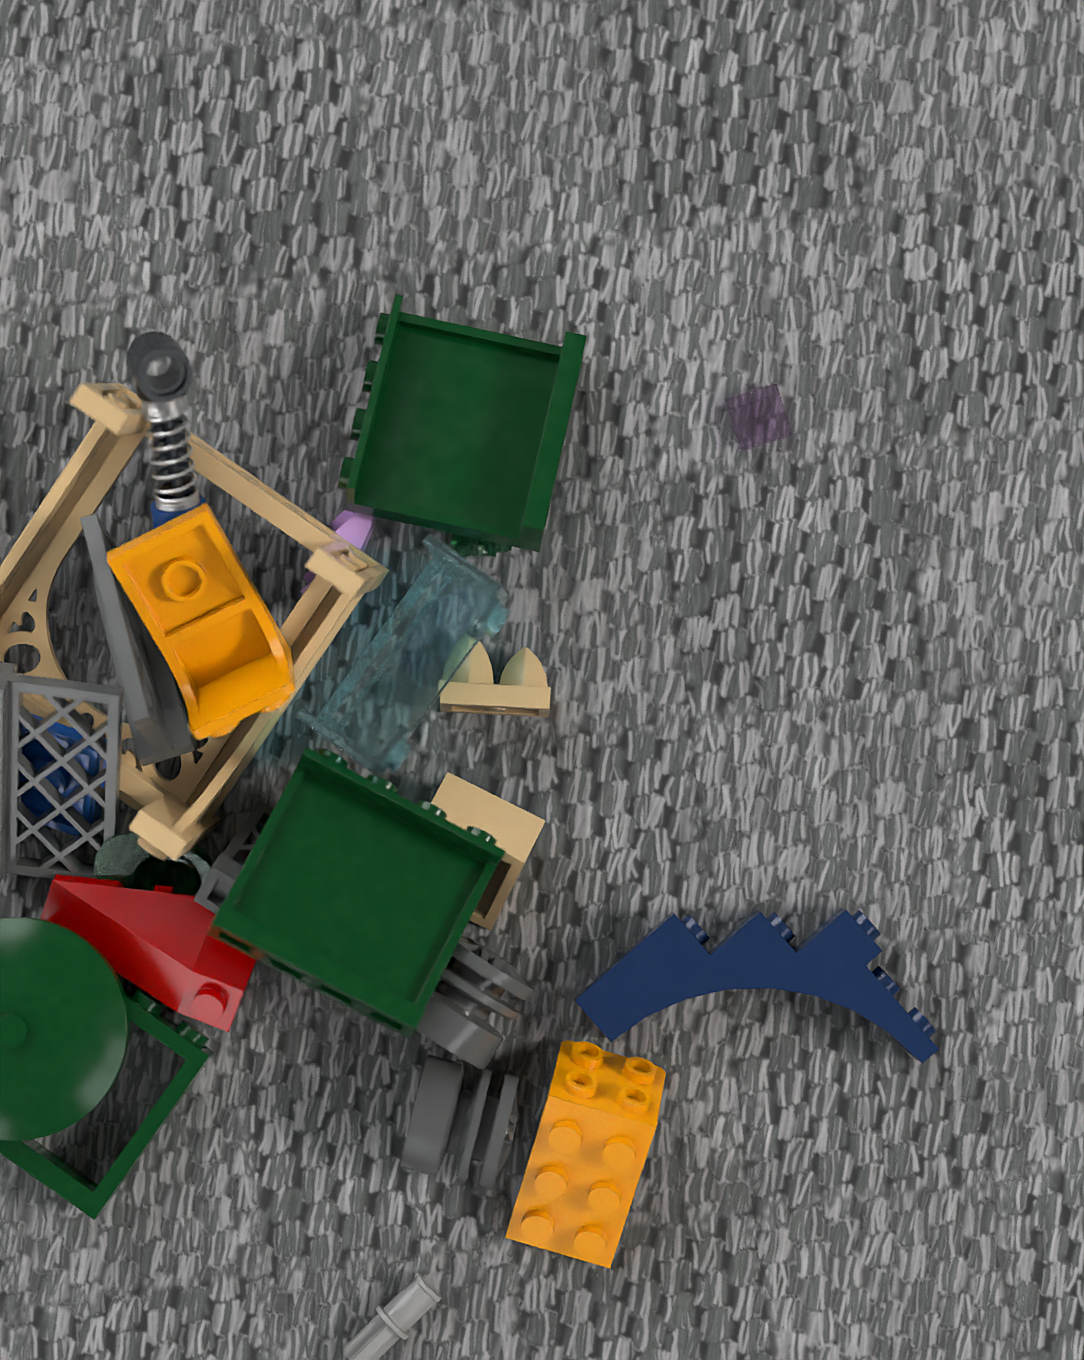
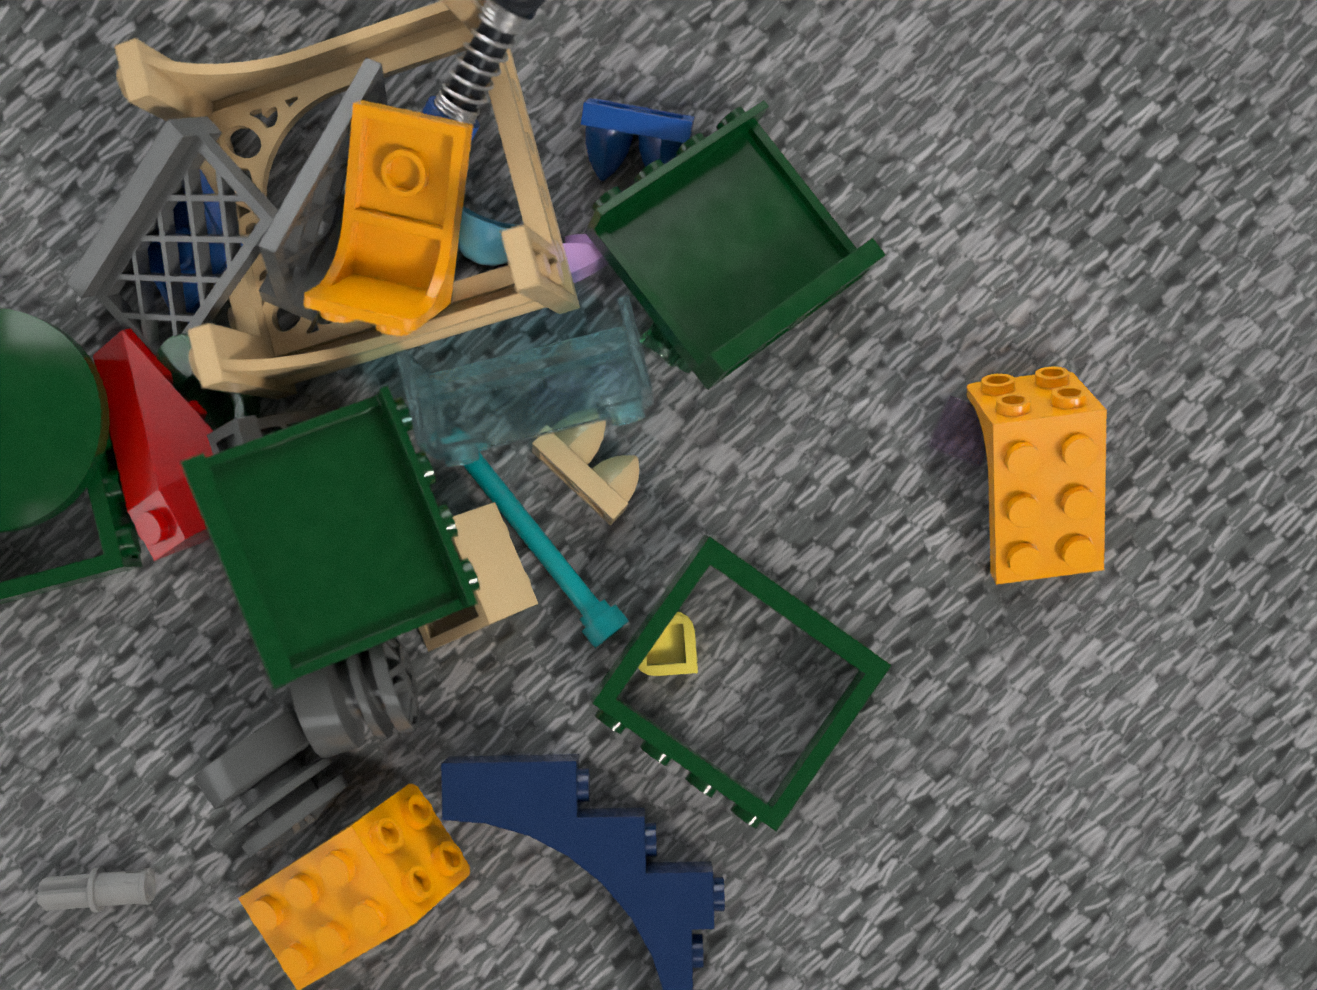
camera: 45 degrees right, 0 degrees up
(280, 572) = (482, 238): none -> medium azure cap
(292, 405) = (612, 128): none -> blue tile
(599, 794) = (598, 617): none -> teal piece
(672, 772) = (674, 650): none -> light yellow tile
(733, 847) = (702, 773): none -> dark green window
(843, 403) = (1043, 474): none -> light orange bracket

